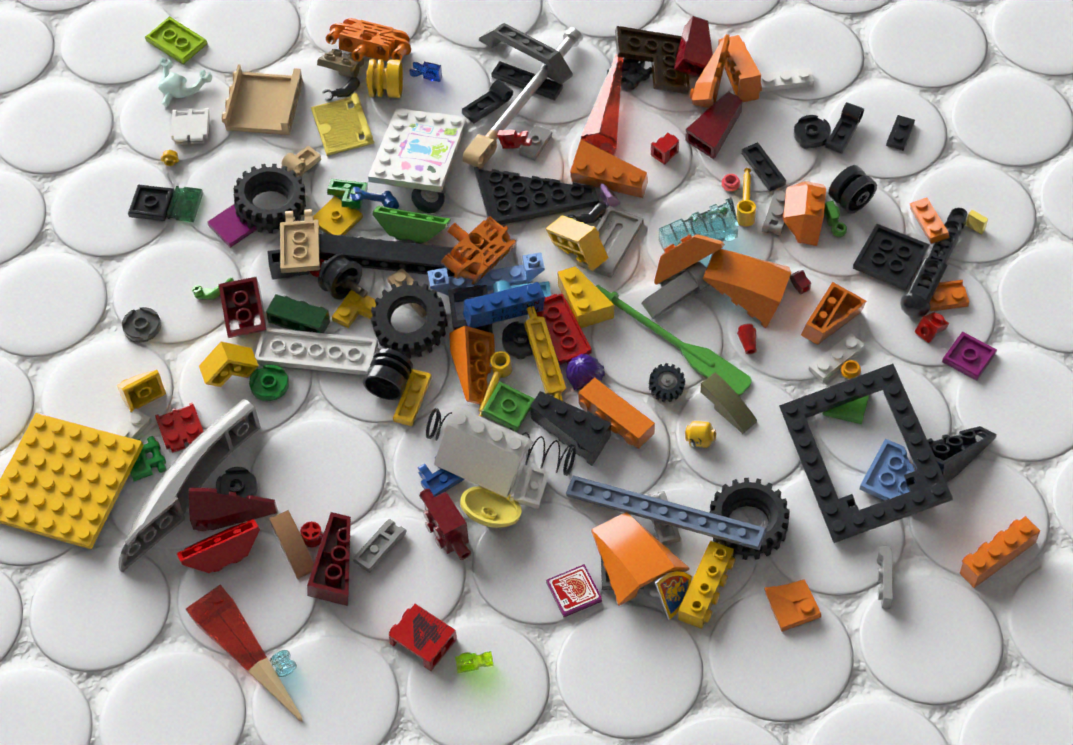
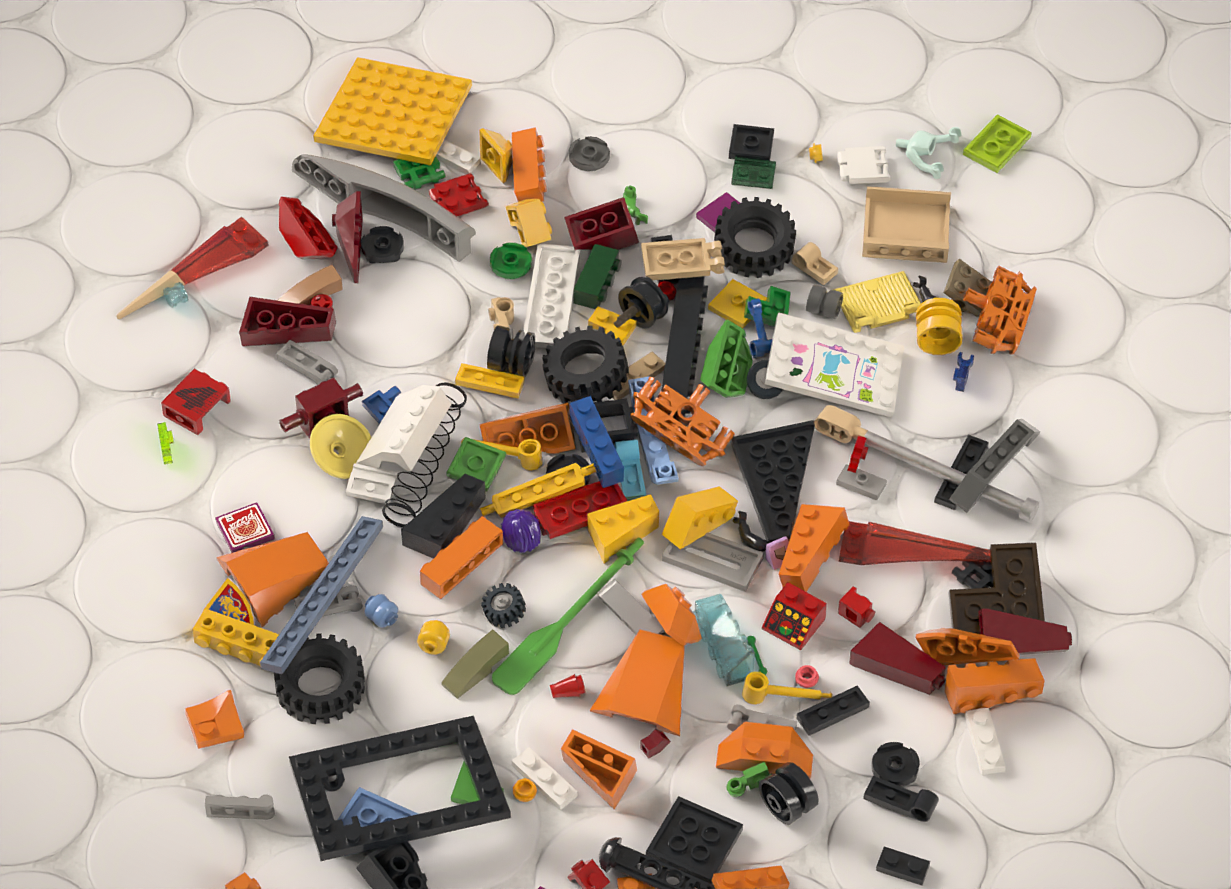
camera: 85 degrees right, 5 degrees down
(169, 363) = (528, 165): none -> orange brick
(342, 388) = (501, 311): none -> tan plate
(346, 155) = (828, 303): none -> dark grey wheel
(497, 96) = (917, 431): black plate -> none
(673, 473) = (381, 610): none -> medium blue piece
(674, 186) = (795, 616): none -> red slope

